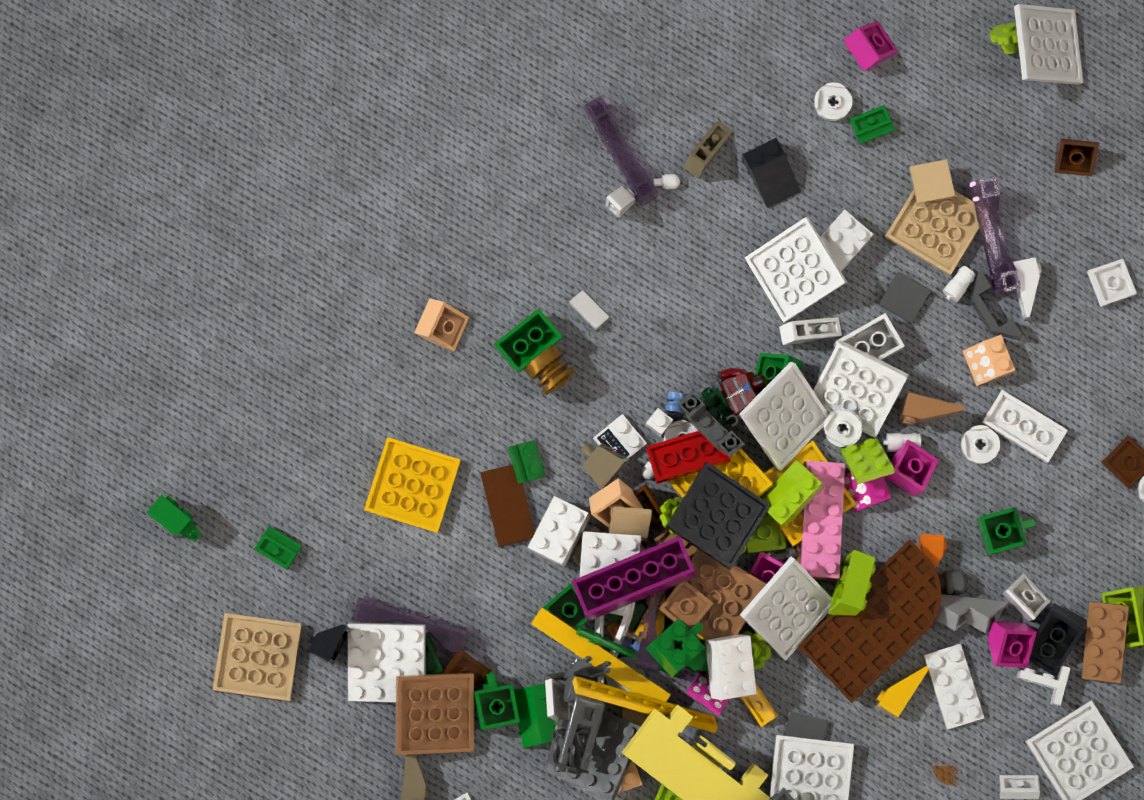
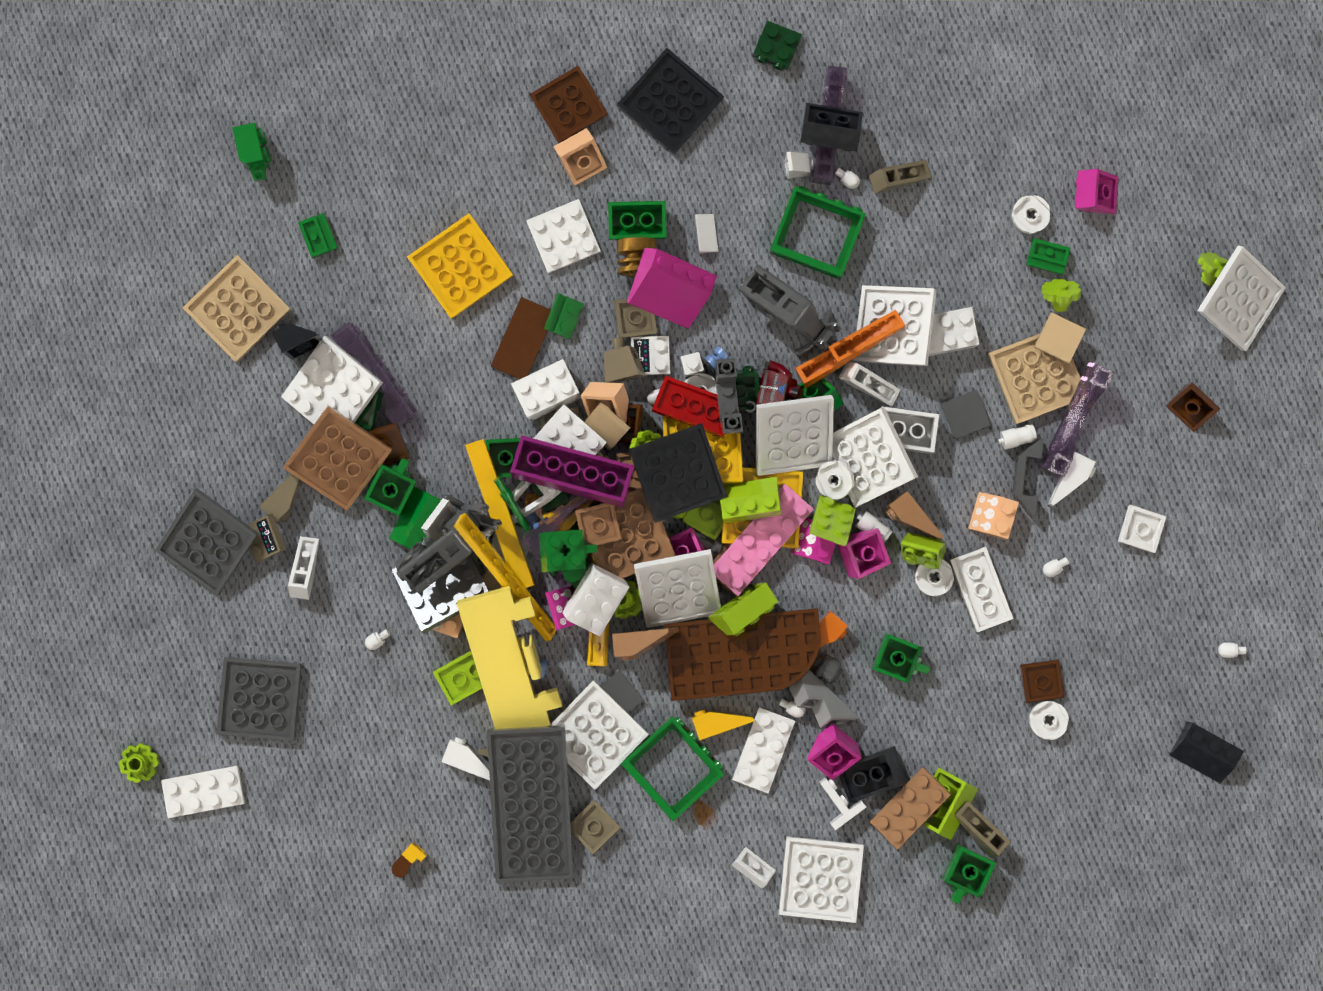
camera: 40 degrees right, 5 degrees up
(399, 290) = (568, 104): none -> reddish brown plate
(476, 398) = (563, 236): none -> white plate
(479, 226) = (670, 101): none -> black plate
(530, 119) = (777, 46): none -> dark green plate
(584, 419) = (633, 320): none -> dark tan plate
(596, 373) = (670, 287): none -> dark pink slope
(625, 151) = (831, 127): none -> black slope
(677, 210) = (819, 200): none -> green piece
(704, 317) = (790, 307): none -> dark grey piece
(771, 172) = (936, 233): black slope -> none
(774, 315) = (849, 348): none -> orange slope
(785, 681) = (631, 644): none -> medium nougat slope
(890, 722) = (714, 766): none -> green piece
(905, 146) = (1061, 293): none -> lime plant
(950, 635) = (791, 708): none -> white cylinder
(956, 430) = (923, 550): none -> lime slope
(1026, 597) = (876, 725): white slope -> none
(1068, 364) = (1054, 567): none -> white cylinder

